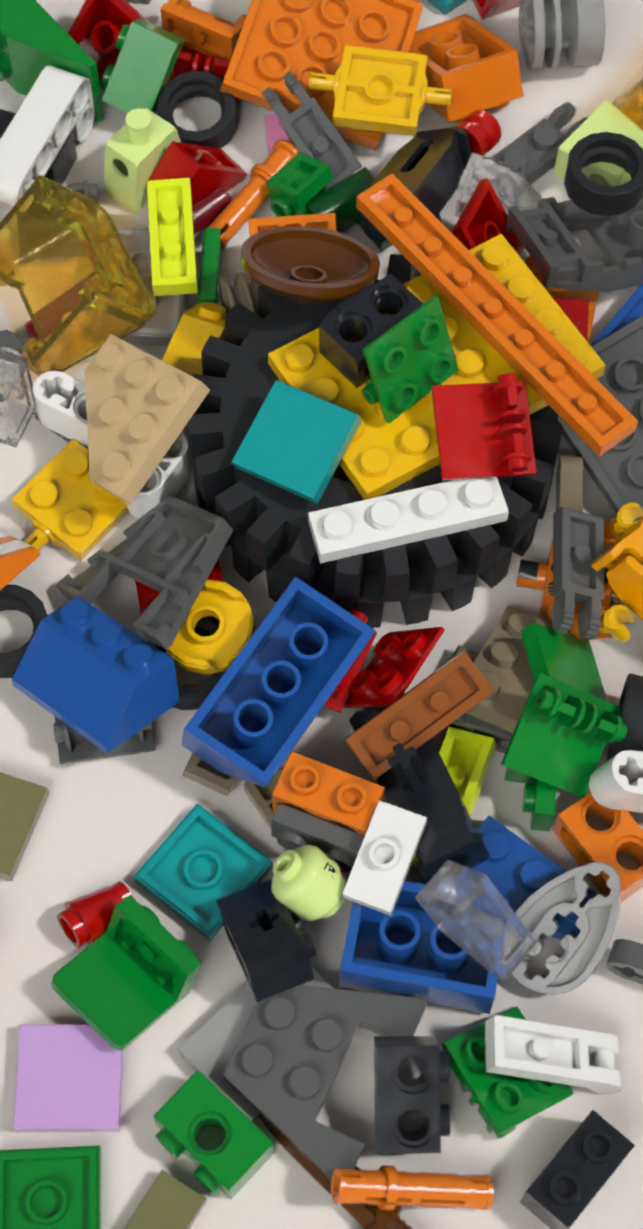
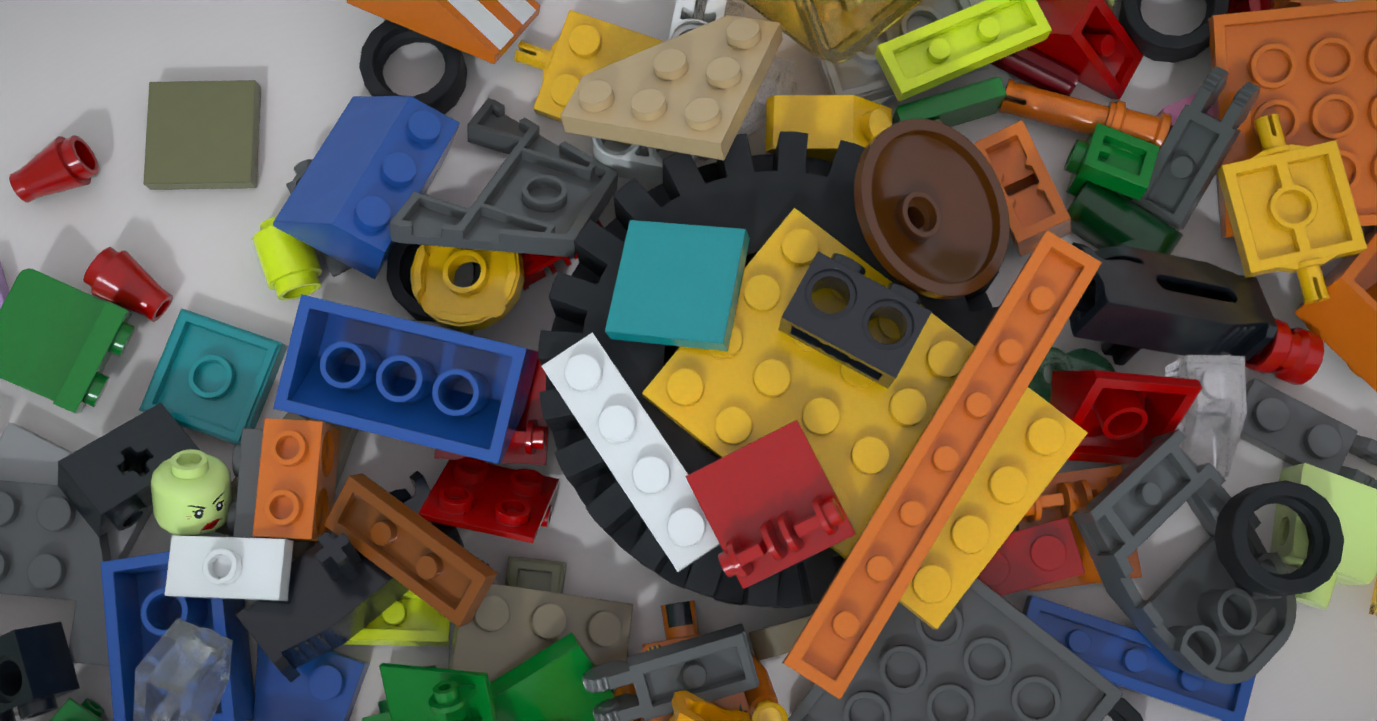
camera: 75 degrees right, 15 degrees up
(126, 774) = (286, 262): none -> neon yellow brick
(409, 360) = (813, 381): green hinge -> none

